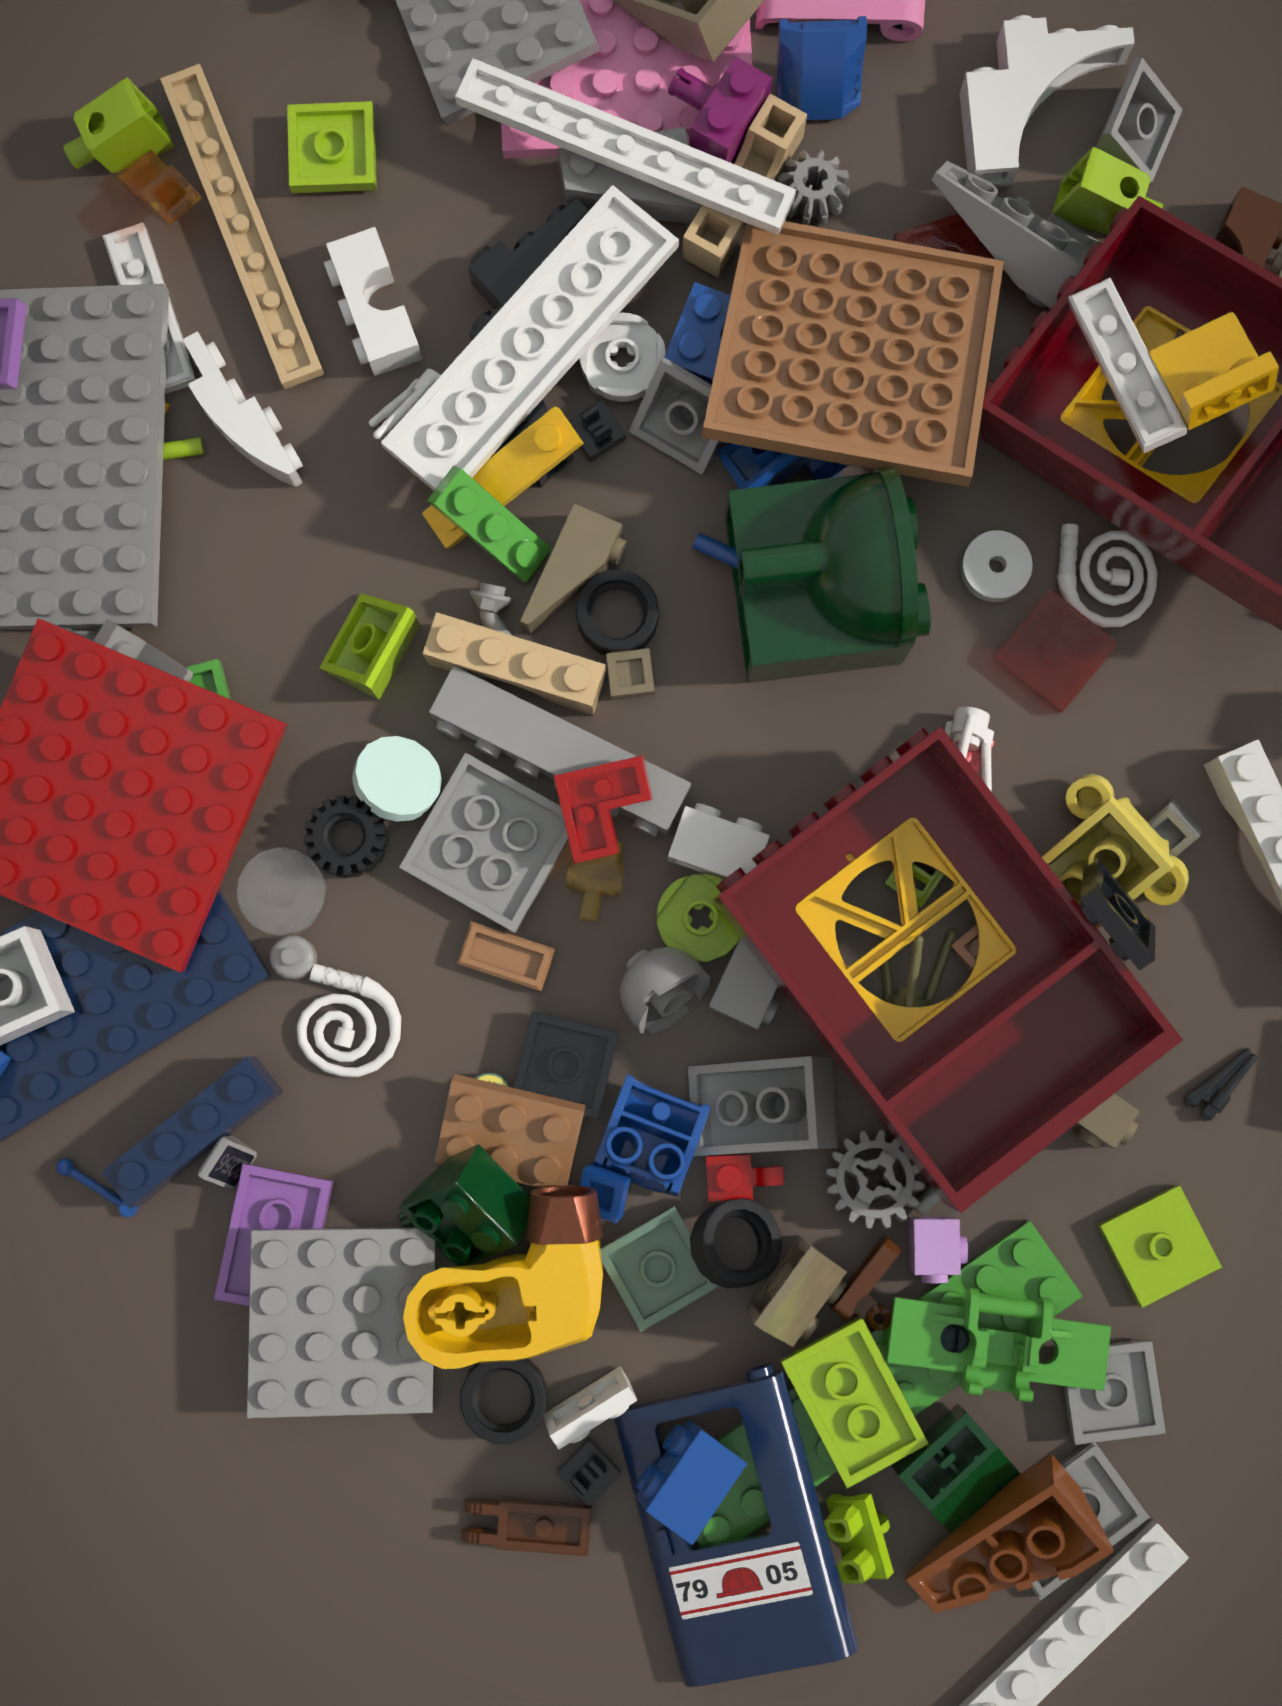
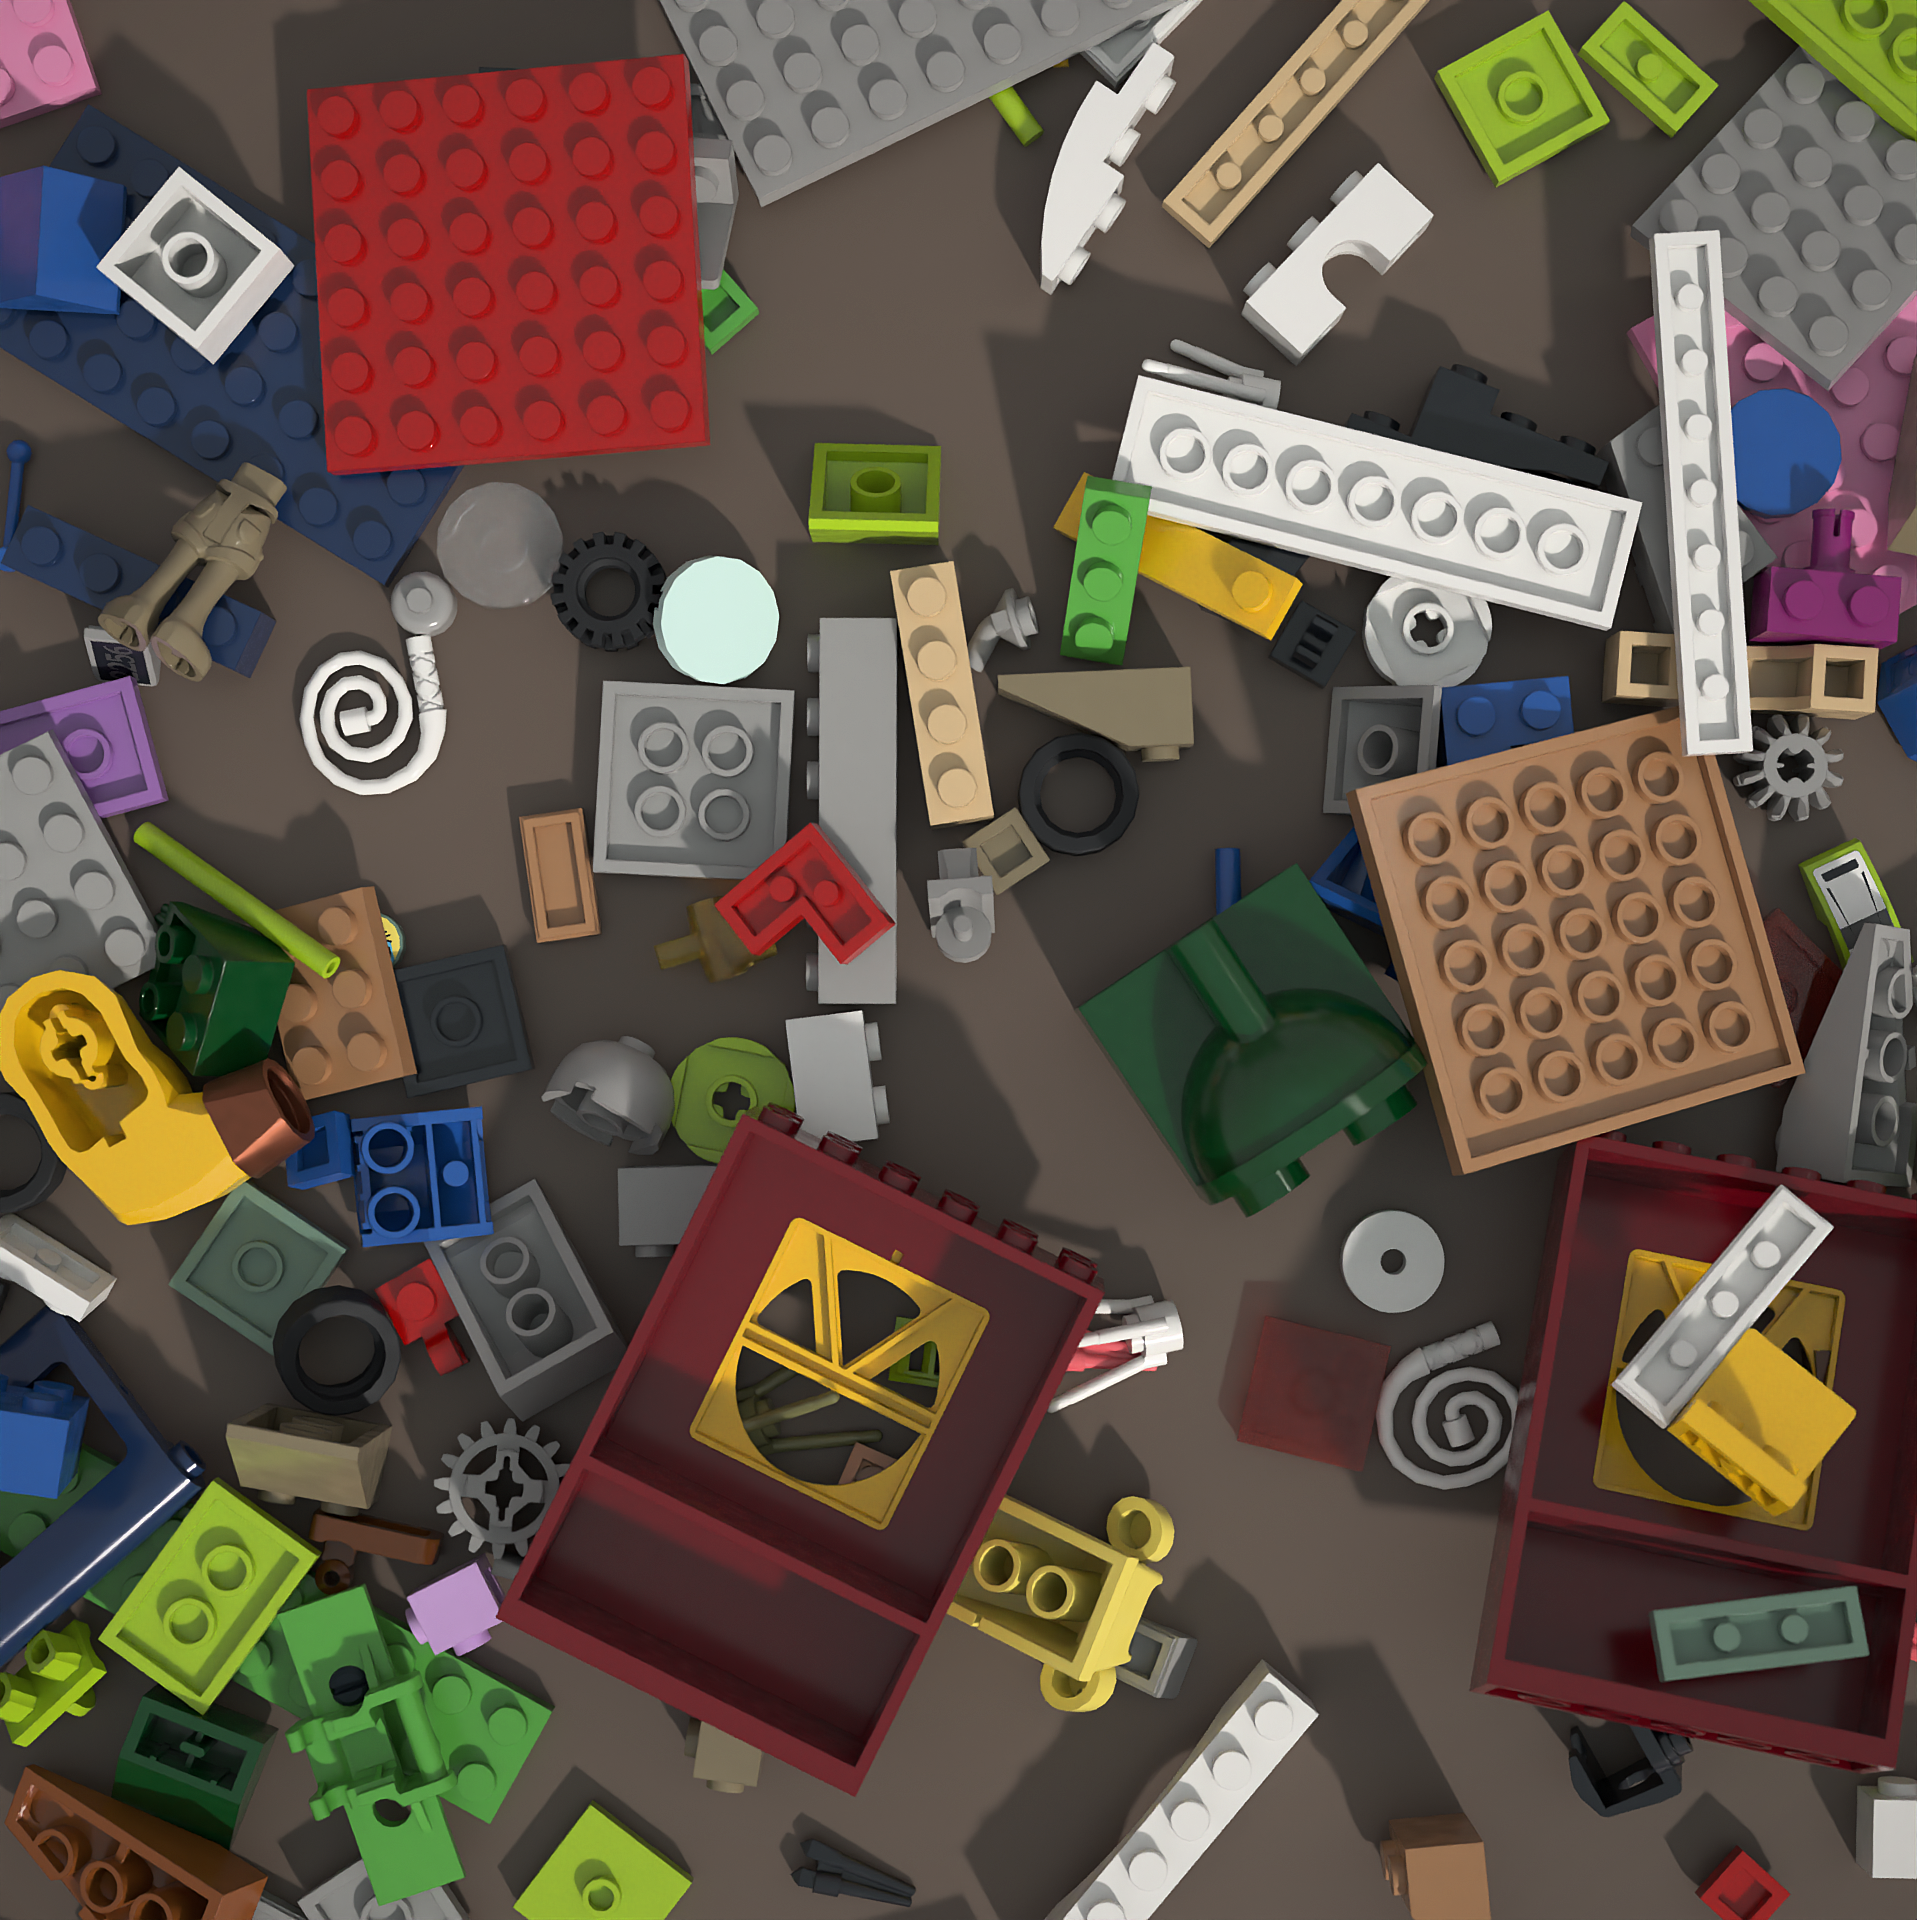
camera: 65 degrees right, 5 degrees up
(183, 1058) = (225, 537): none -> dark tan piece
(353, 66) = (1647, 69): none -> lime plate
(419, 1165) = (237, 900): none -> lime piece
(626, 91) = (1783, 452): none -> blue tile
(650, 713) = (961, 906): none -> light grey hips
(908, 191) = (1846, 894): none -> slope
(1112, 907) = (979, 1638): black plate -> none

